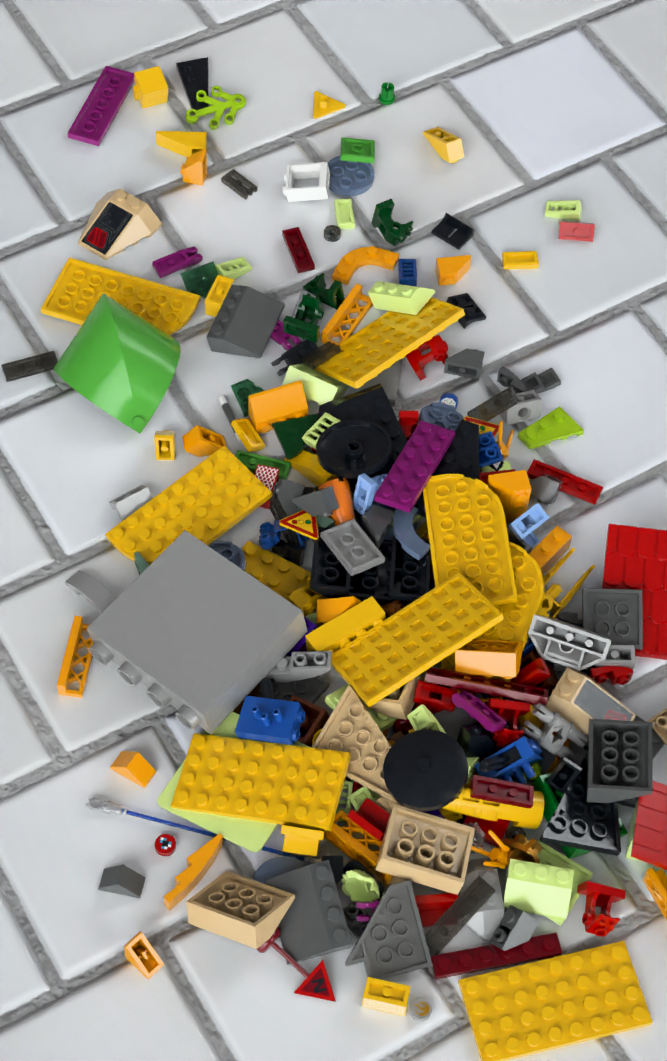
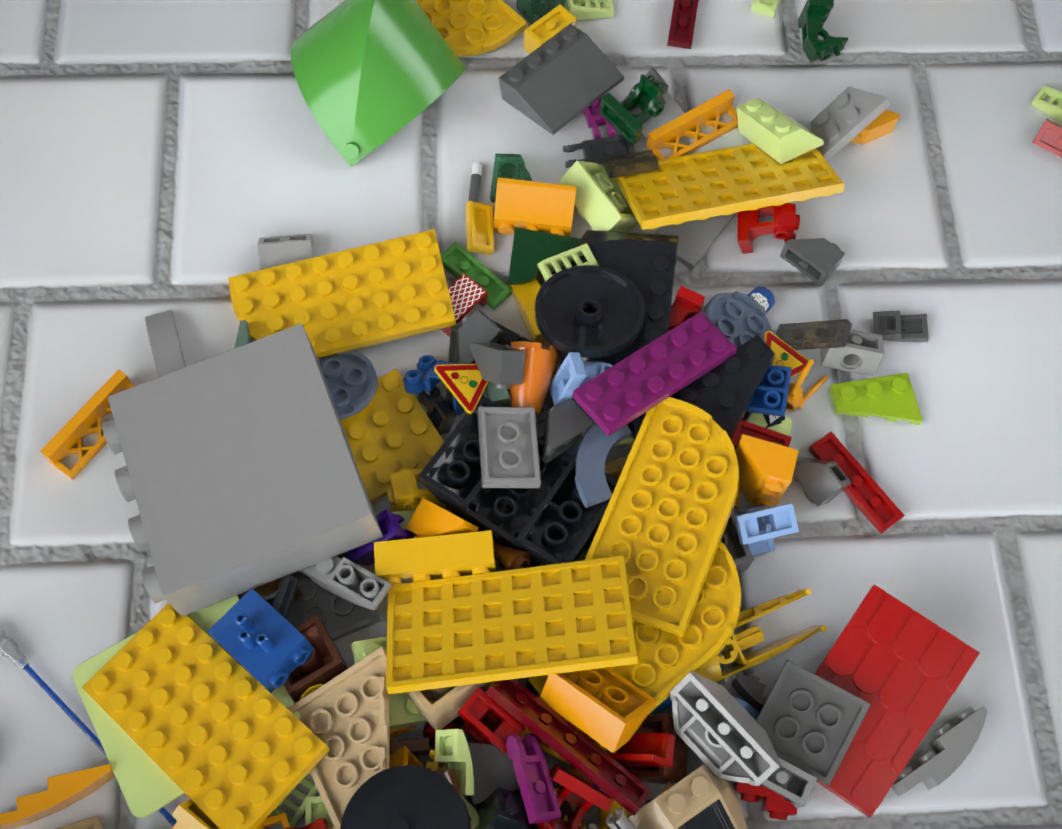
camera: 25 degrees right, 10 degrees up
(29, 366) = (272, 23): clear smoke tile -> none
(134, 767) = (70, 611): light orange slope -> none
(165, 445) = (367, 193): yellow slope -> none
(165, 845) = (44, 738): red tile -> none
(202, 441) = (418, 212): light orange slope -> none
(327, 296) = (682, 83): dark green tile -> none
(332, 233) = (740, 12): clear smoke tile -> none
(360, 257) = (757, 58): light orange plate -> none
(411, 278) = (800, 115): blue slope -> none
(440, 270) = (846, 119): none -> light grey wing
(447, 226) = (893, 64): black piece -> none
(471, 314) = (854, 193): black piece -> none
(508, 378) = (858, 304): dark grey slope -> none
(520, 260) = (965, 149): yellow tile -> none
(551, 549) = (776, 573): light orange brick -> none

